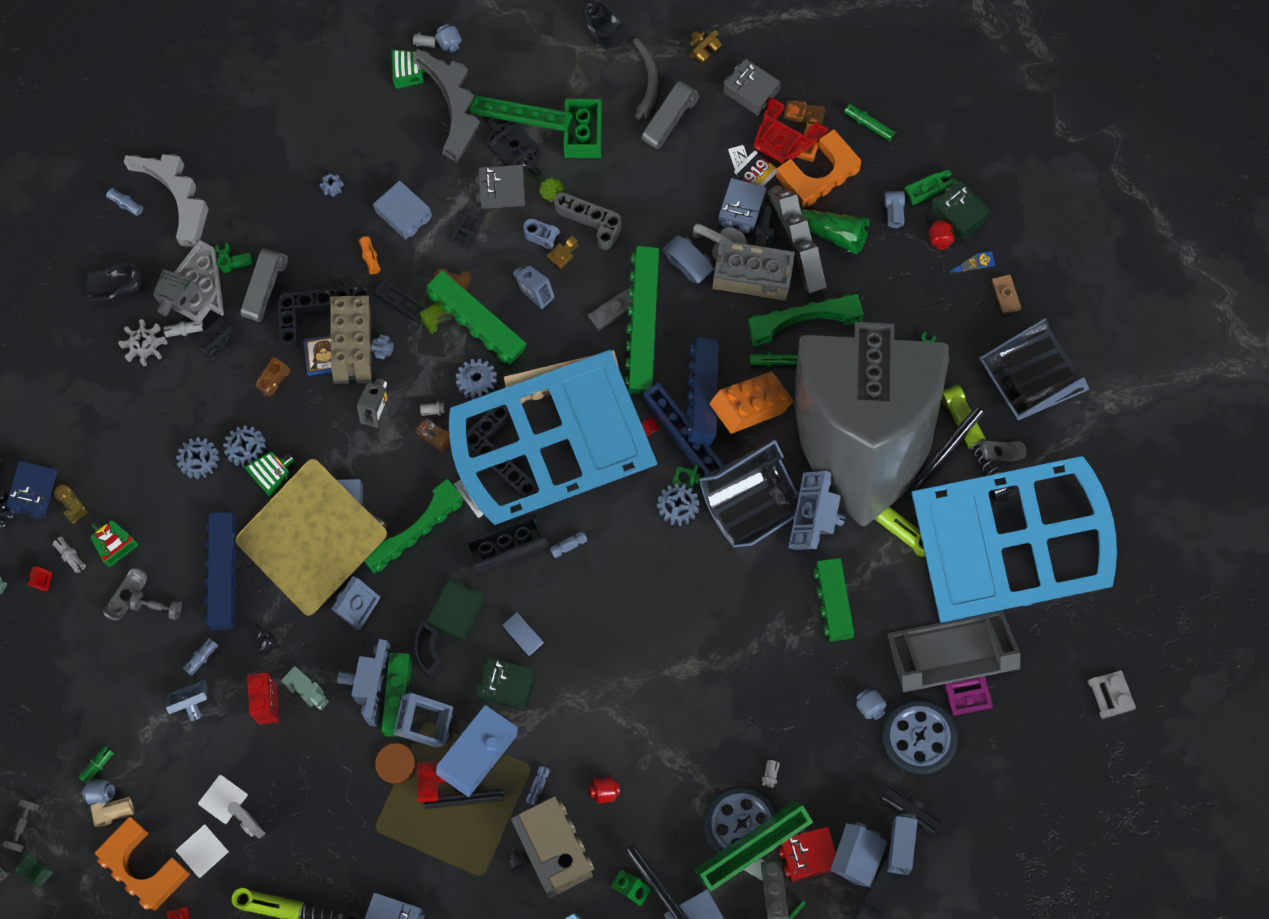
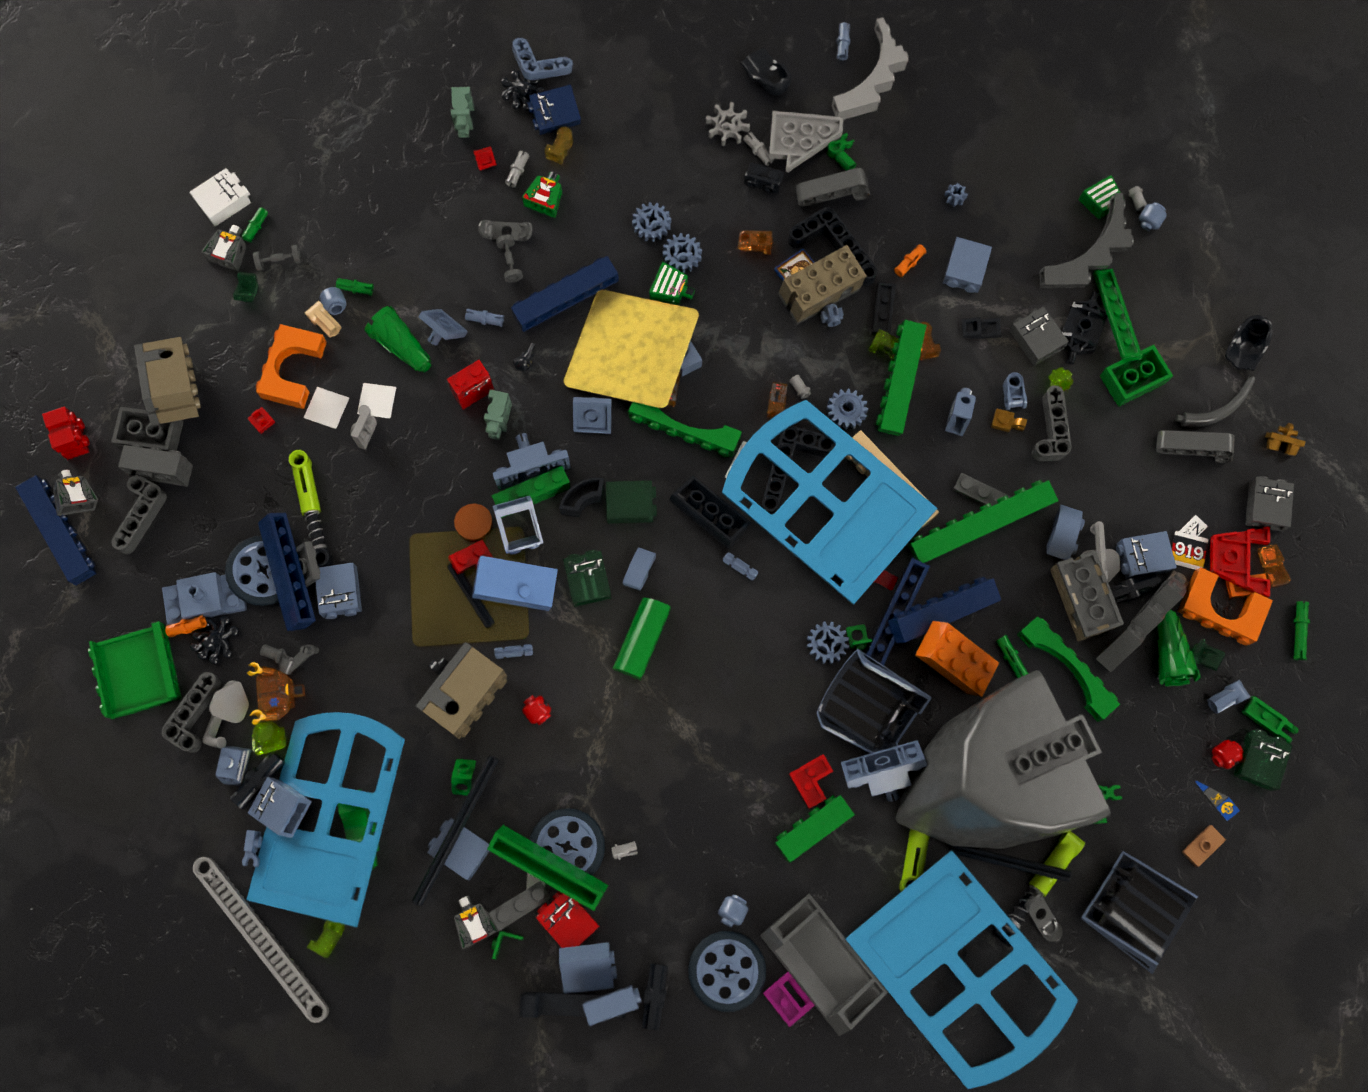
camera: 55 degrees right, 5 degrees up
(174, 291) = (783, 121): dark grey torso -> none
(174, 746) = (396, 337): none -> green cone
(372, 403) = (776, 334): dark grey torso -> none
(587, 663) = (642, 638): none -> green brick
(789, 585) = (806, 780): none -> red plate
(852, 204) = (1207, 655): none -> clear green bracket

